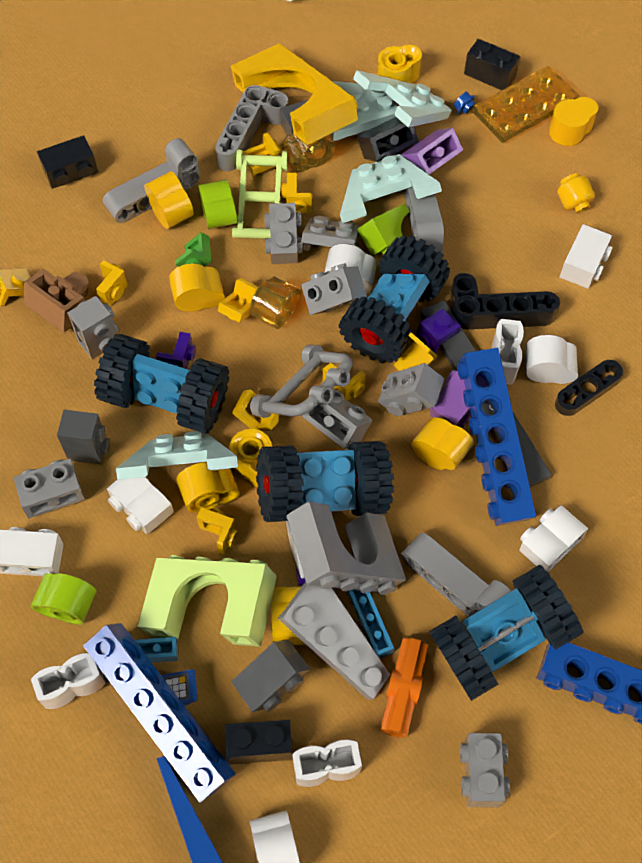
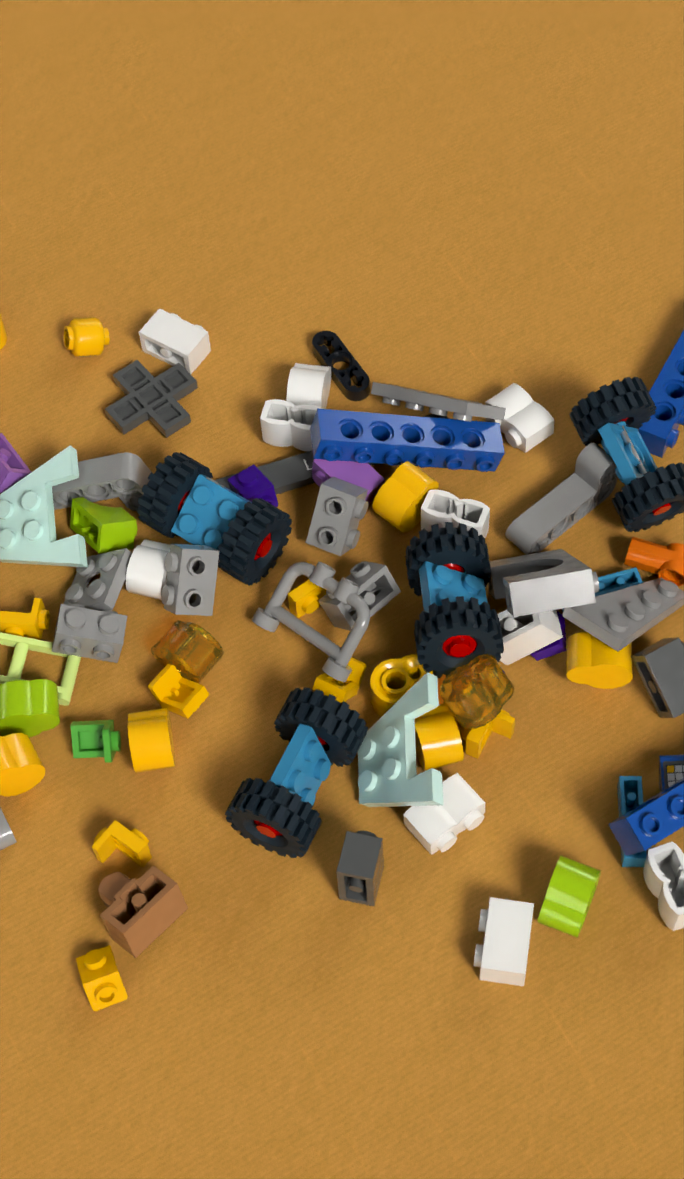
camera: 80 degrees left, 5 degrees down
(48, 488) = (422, 914): light grey brick -> none
(93, 325) = (199, 855): light grey brick -> none
(179, 579) = (577, 682): yellowish green arch -> none
(182, 354) = (245, 761): dark purple bracket -> none
(236, 506) = (477, 691): none -> clear yellow piece
(415, 355) = (287, 504): yellow bracket -> none
(425, 487) = (445, 507): none -> white brick
(523, 249) = (151, 398): none -> dark grey plate
(536, 307) = (230, 450): black beam -> none
(546, 463) = (437, 403): none -> light grey wing

